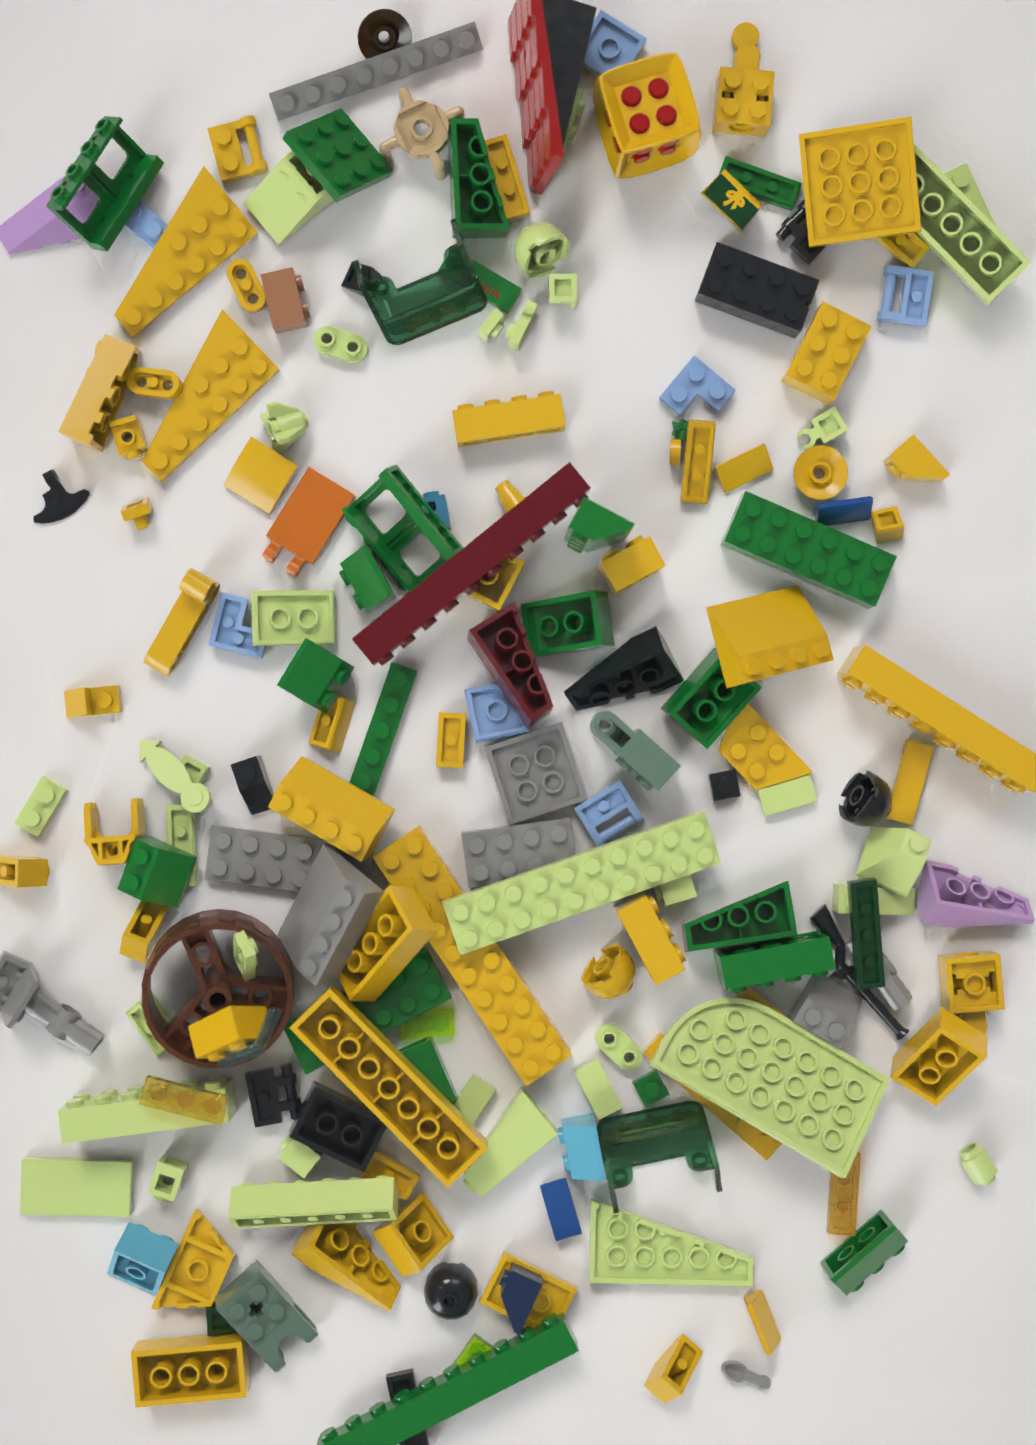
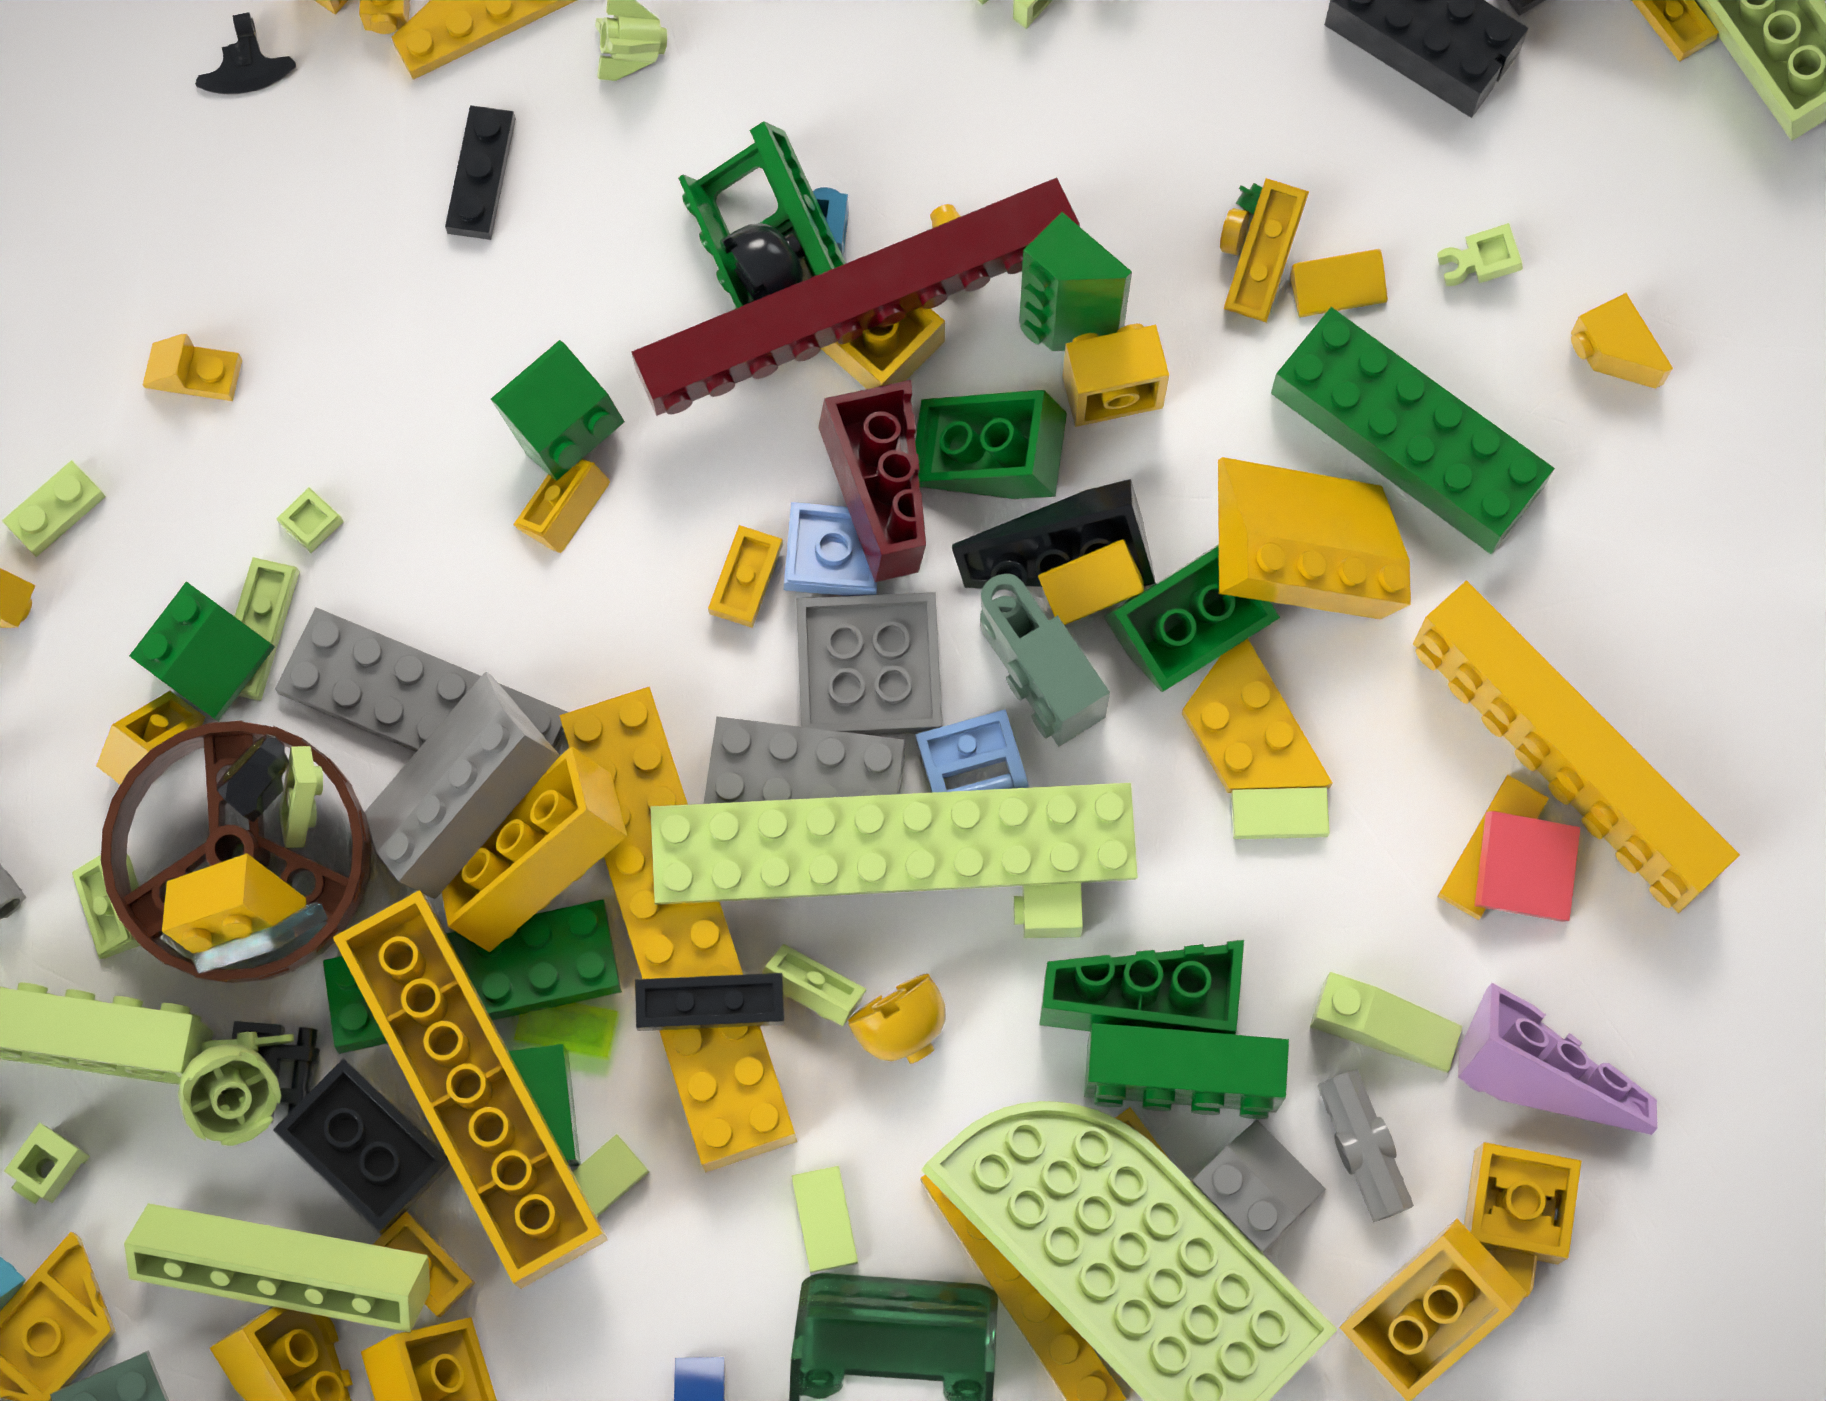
camera: 10 degrees right, 15 degrees down
(105, 848) = (143, 592): yellow piece -> none
(138, 511) = (360, 106): yellow tile -> none
(175, 776) = (283, 515): yellowish green brick -> none
(182, 621) = (378, 281): yellow beam -> none
(184, 1100) = (119, 1008): clear yellow plate -> none
(217, 956) = (255, 777): none -> black rock
(221, 532) = (480, 172): none -> black plate
(228, 627) = (446, 322): light blue plate -> none
(253, 784) = (405, 560): black slope -> none
(257, 1122) = (228, 1094): none -> yellowish green cylinder
(258, 1085) = (251, 1041): none -> yellowish green piece
(260, 475) = (568, 103): yellow slope -> none
(292, 616) = (534, 310): yellowish green tile -> none
(298, 1156) = (282, 1184): yellowish green brick -> none
(307, 520) = (618, 189): orange tile -> none
(332, 808) = (519, 624): yellow slope -> none
(367, 580) = (682, 282): green slope -> none
(383, 728) = (624, 554): green plate -> none
(411, 554) = (764, 259): none -> black cylinder
(506, 1001) = (709, 1002): none -> black plate
(508, 419) = (981, 117): yellow brick -> none
(511, 1141) = (647, 1264): yellowish green slope -> none
(556, 965) = (816, 985): none -> yellowish green plate
(582, 1148) = (767, 1304): medium azure slope -> none
(619, 1046) = (879, 1156): yellowish green plate -> none
(650, 694) = (1092, 582): none -> yellow slope
(650, 1088) = (916, 1243): green plate -> none
(651, 937) = (985, 971): yellow brick -> none
(697, 380) = (1298, 138): light blue plate -> none
(724, 785) = (1178, 769): black plate -> none
(825, 922) = (1315, 1138): black piece -> none
(826, 353) = (1513, 144): yellow brick -> none
(830, 463) = (1463, 300): yellow dish -> none
(844, 511) = (1489, 386): blue slope -> none
(866, 800) = (1413, 850): black cylinder -> none
(866, 933) = (1355, 1061): dark green tile -> none
(887, 525) = (1553, 431): yellow slope -> none
(893, 858) = (1435, 957): yellowish green slope -> none
(914, 296) = (1676, 101): light blue plate -> none
(931, 791) = (1527, 866): none -> coral tile

